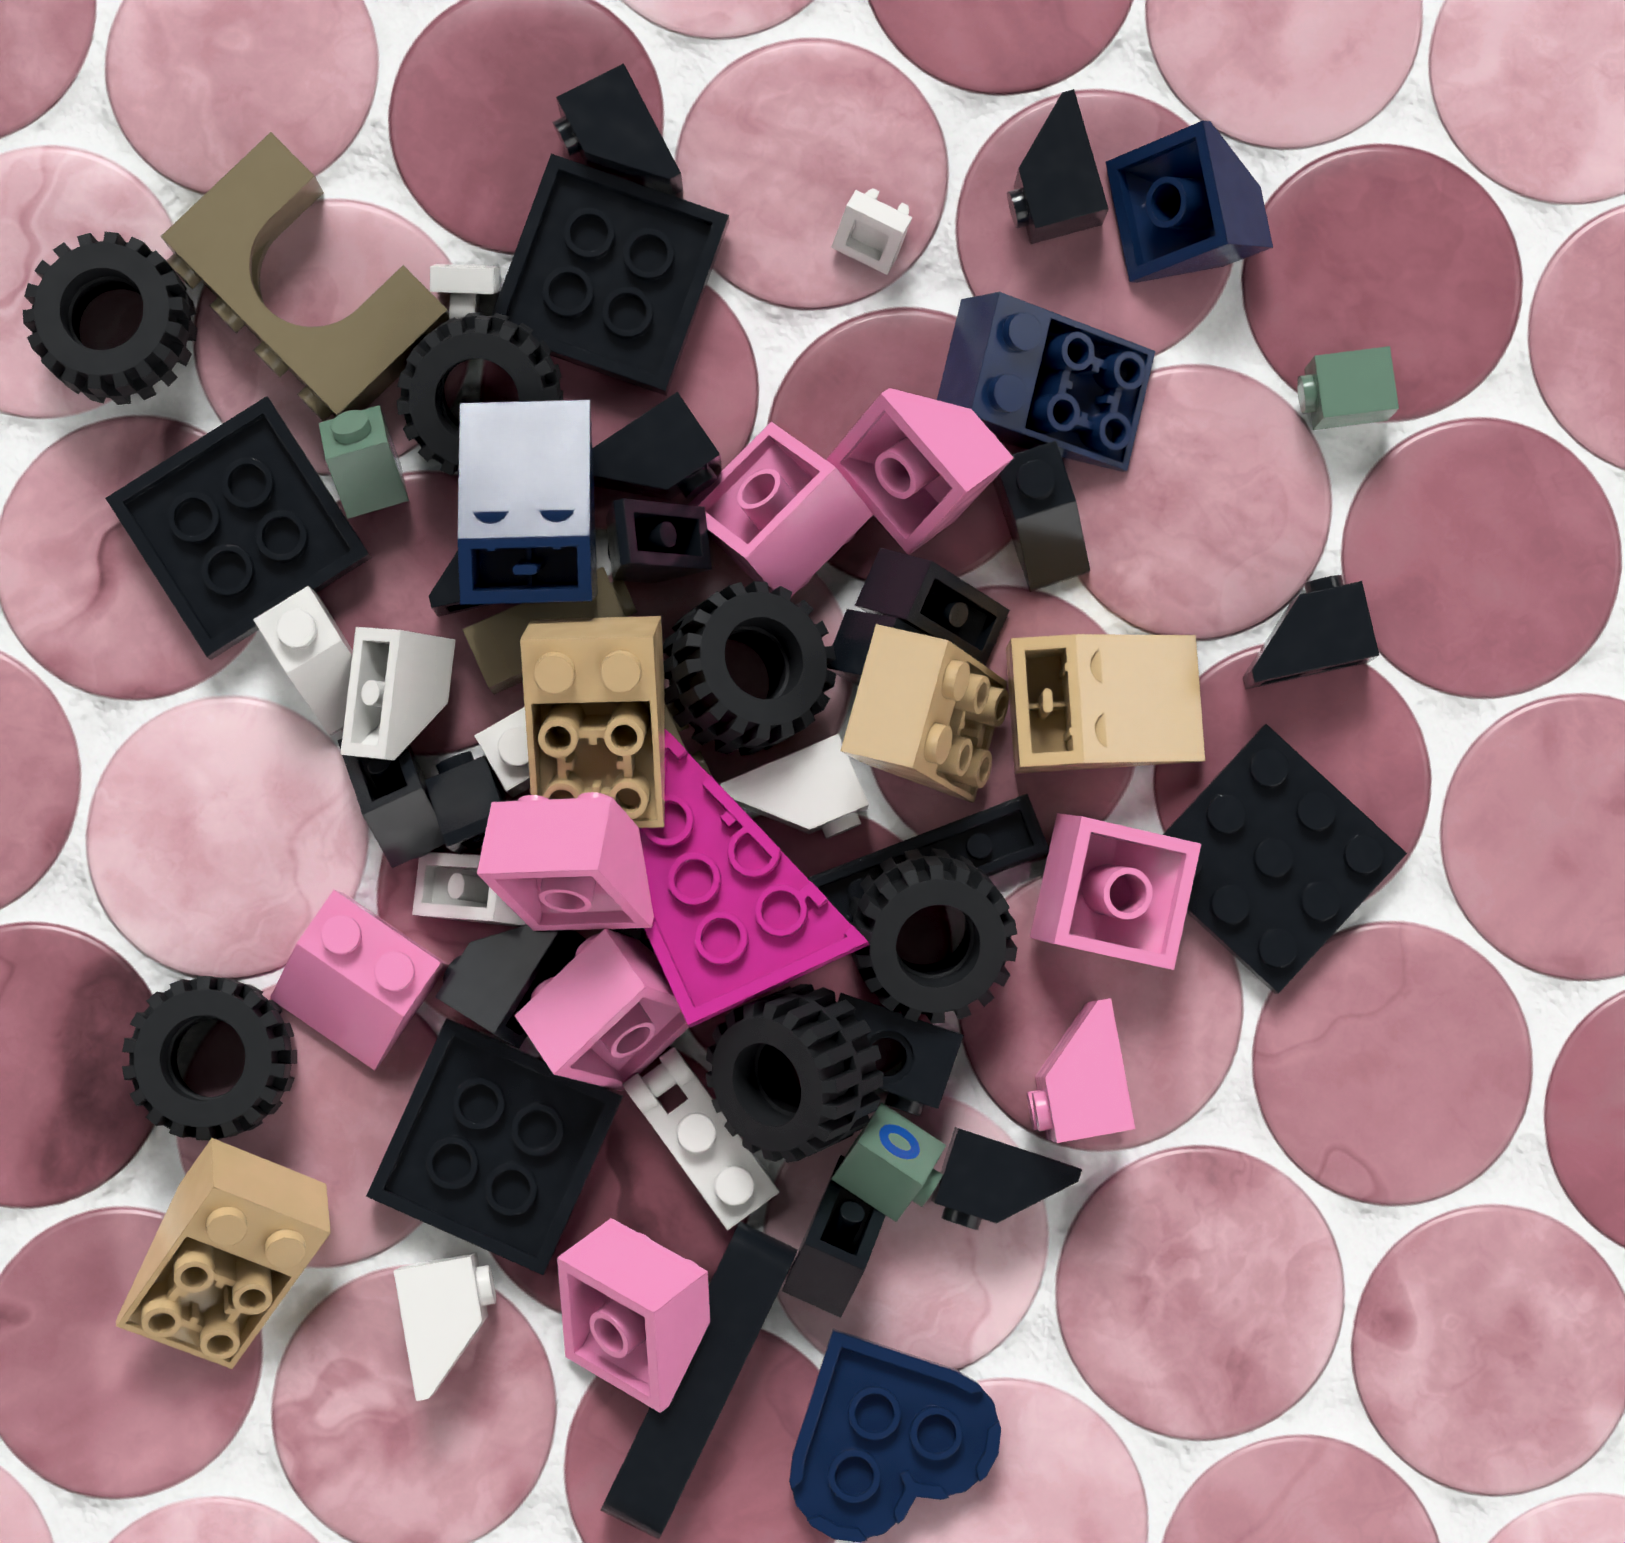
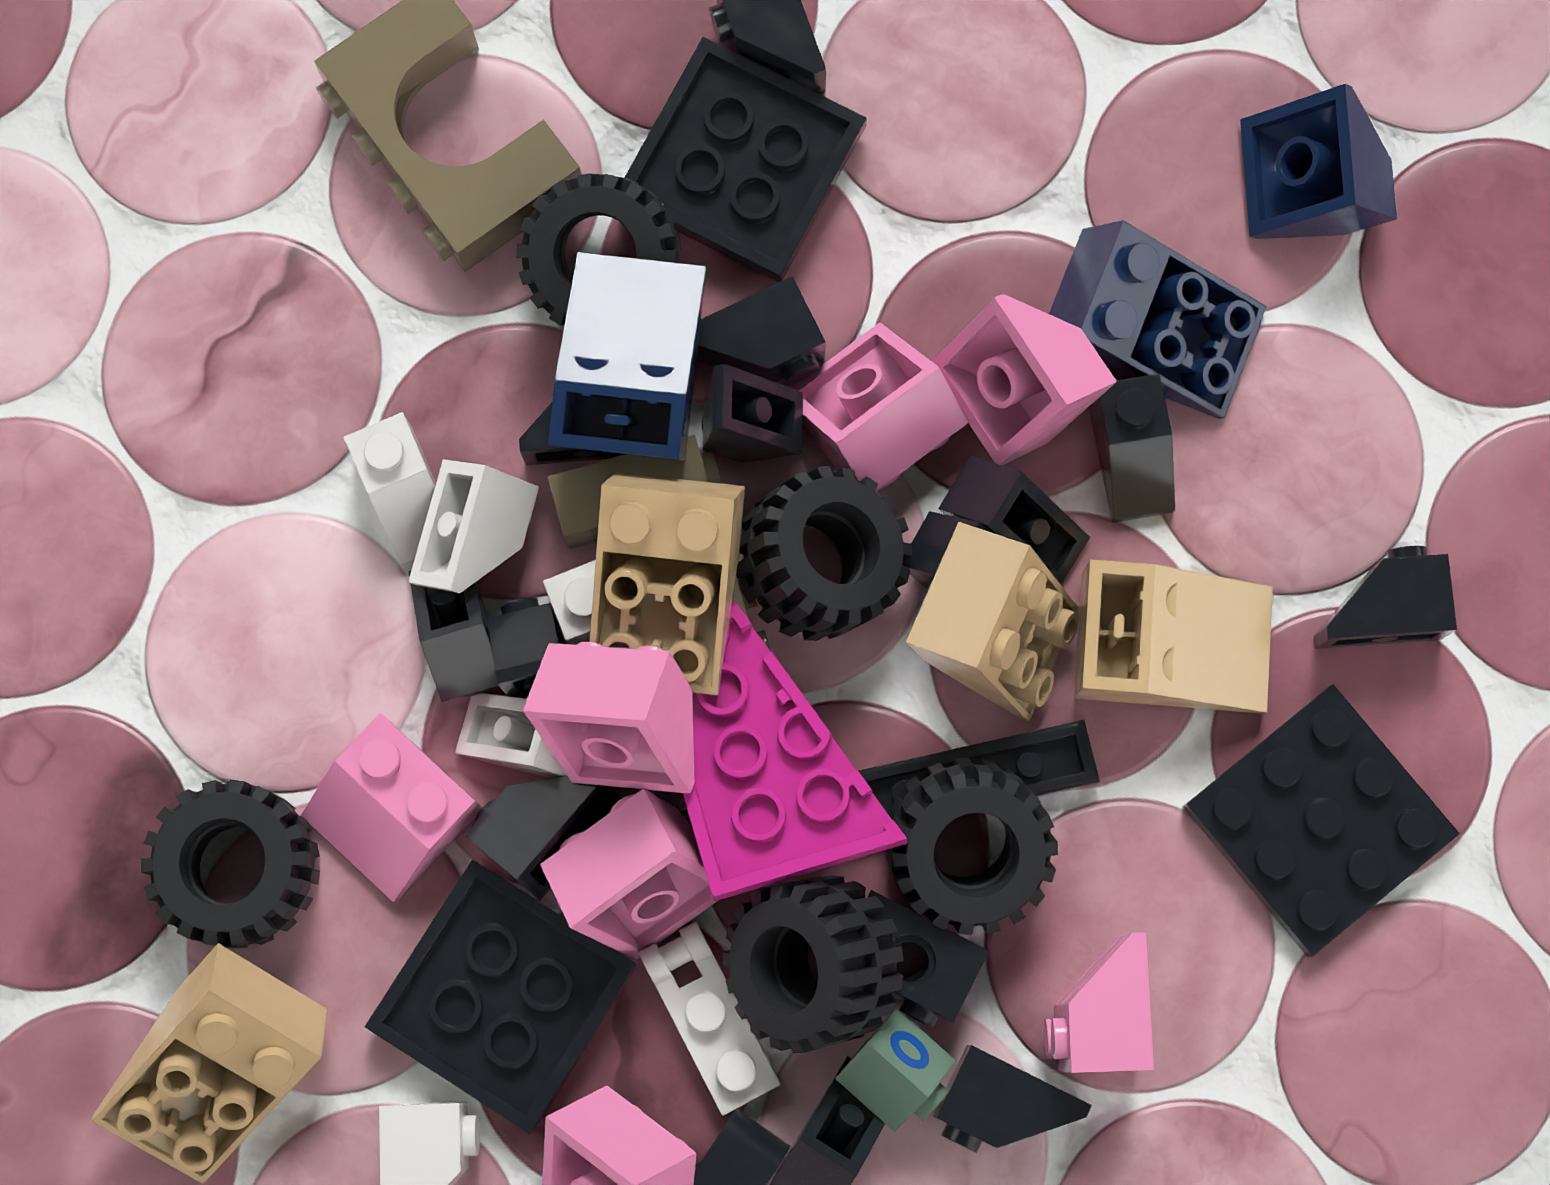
camera: 15 degrees right, 5 degrees down
(80, 278) = (223, 97): black tyre -> none
(237, 526) = (343, 349): black plate -> none
(363, 461) = (475, 301): sand green brick -> none
(465, 285) = (600, 147): white tile -> none
(805, 790) = (863, 683): white slope -> none
(872, 230) = (1004, 152): white tile -> none
(1058, 178) = (1193, 127): black slope -> none
(1115, 890) = (1161, 827): bright pink slope -> none
(1348, 388) = (1455, 366): sand green brick -> none

